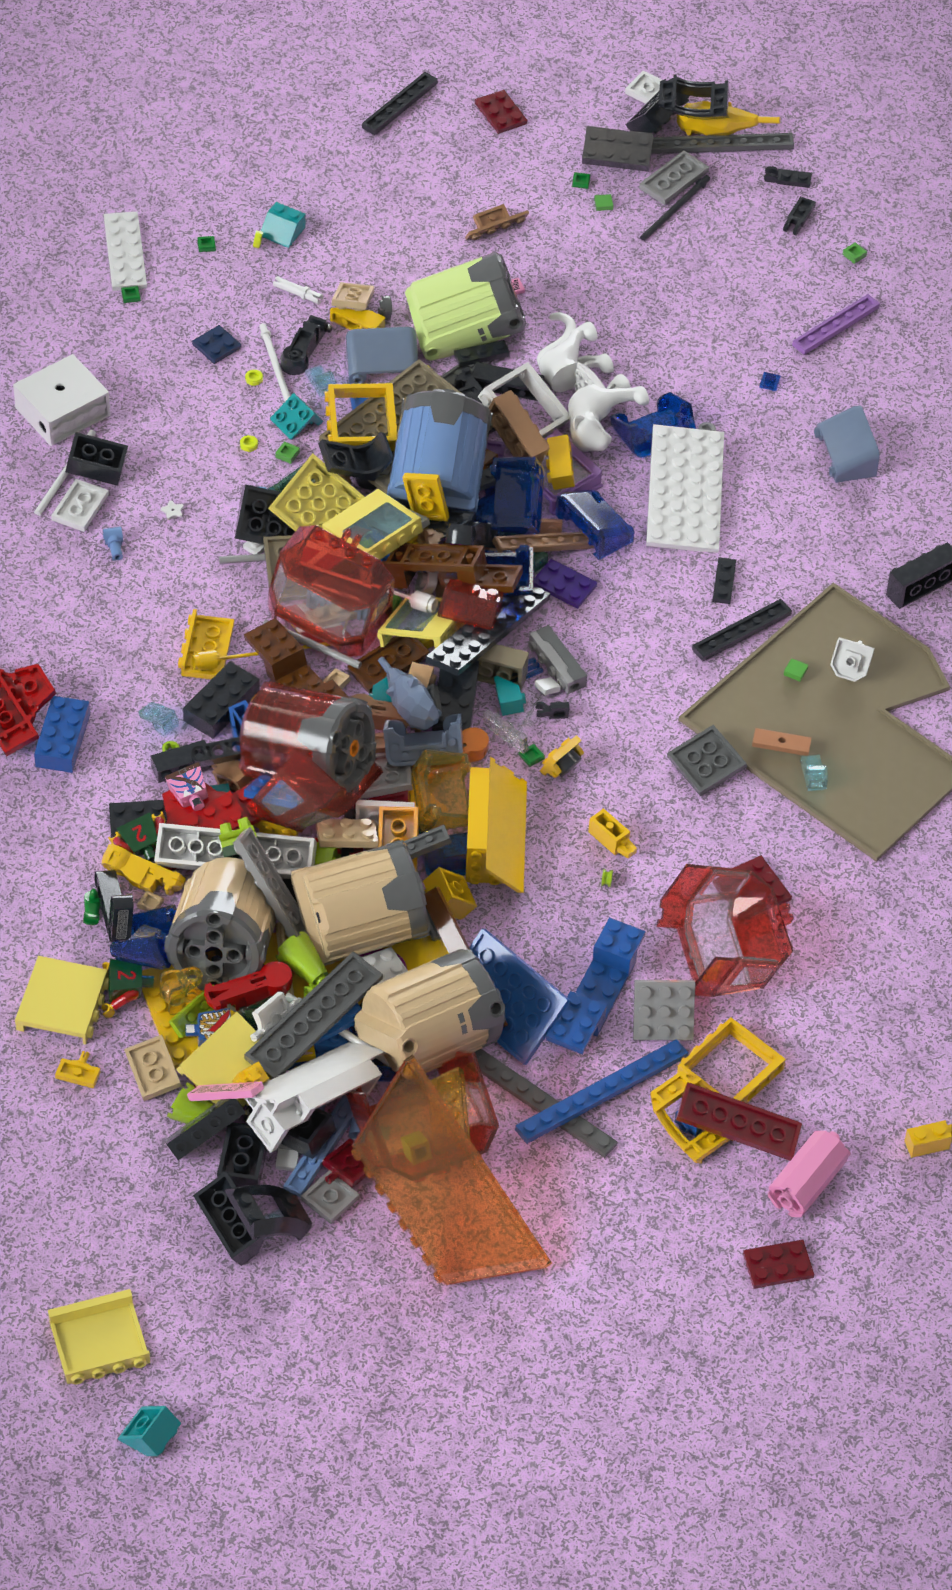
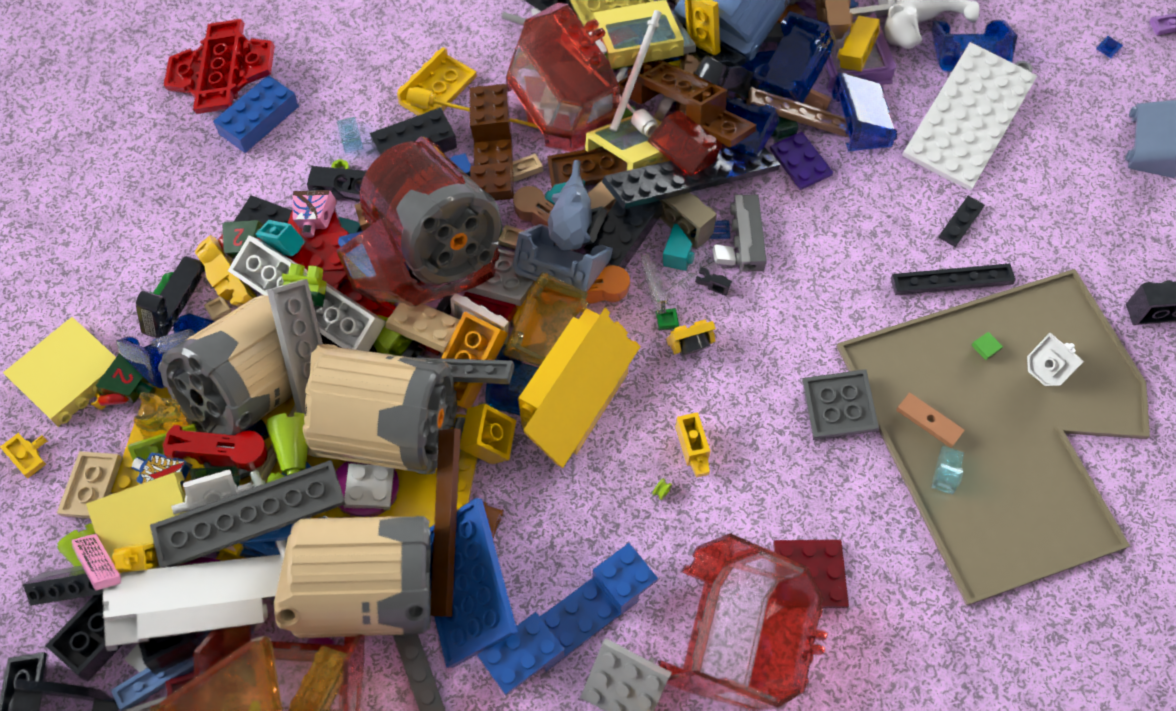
camera: 30 degrees right, 10 degrees up
(180, 813) = (281, 237): none -> teal slope
(324, 649) = (531, 127): light grey bar -> none
(390, 515) = (652, 25): none -> white bar

